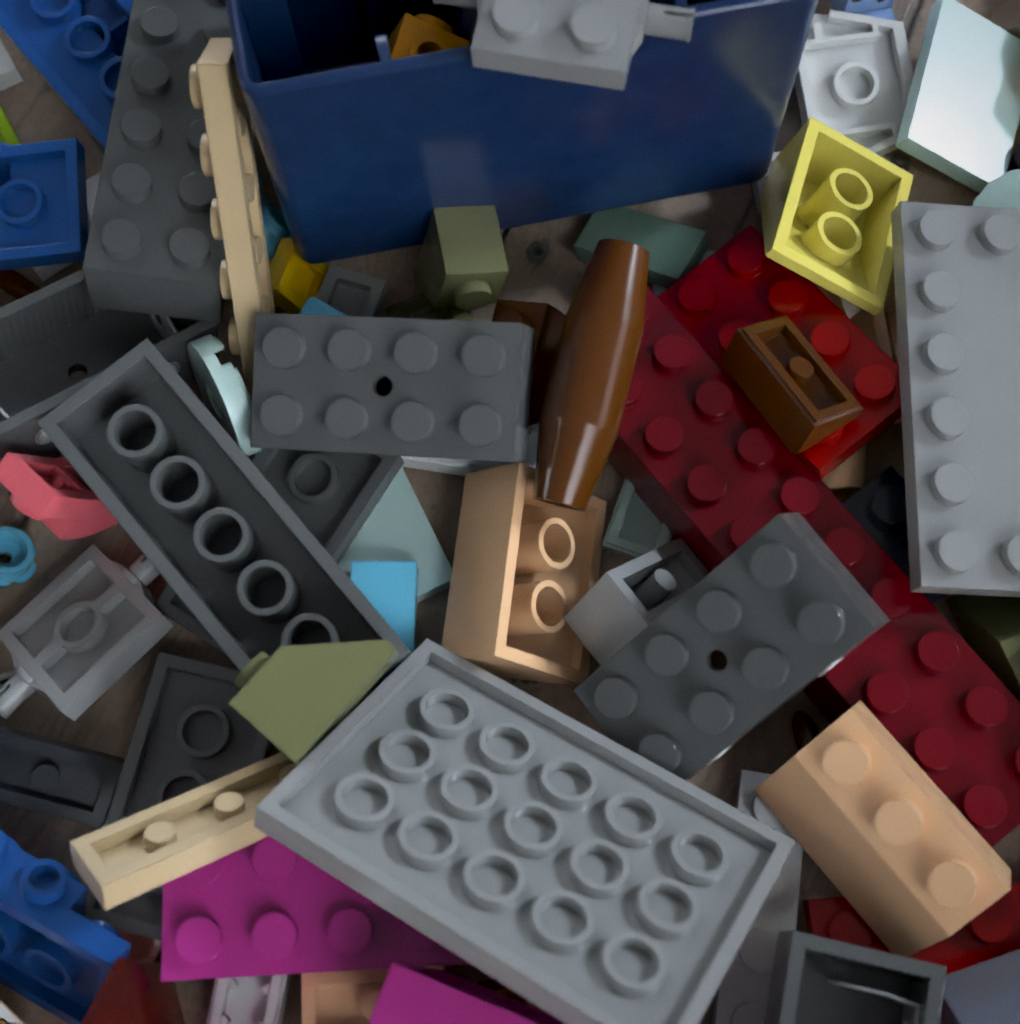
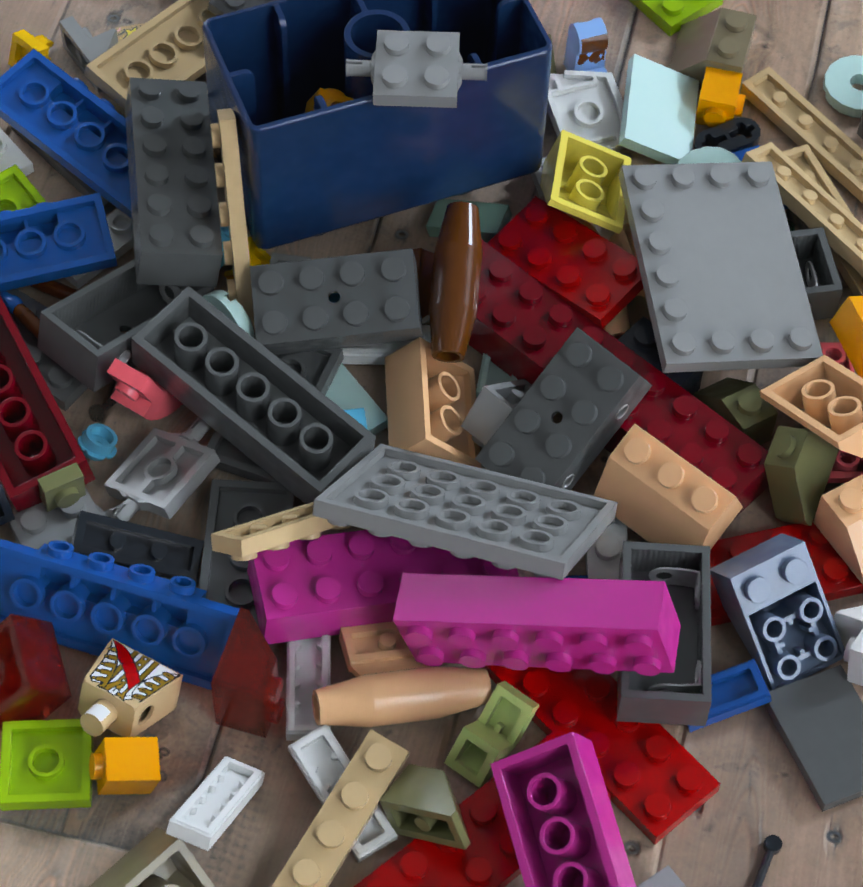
camera: 15 degrees left, 15 degrees down
(308, 690) = (325, 453): olive slope -> none
(462, 258) = (360, 229): olive slope -> none
(789, 383) = (573, 273): reddish brown slope -> none

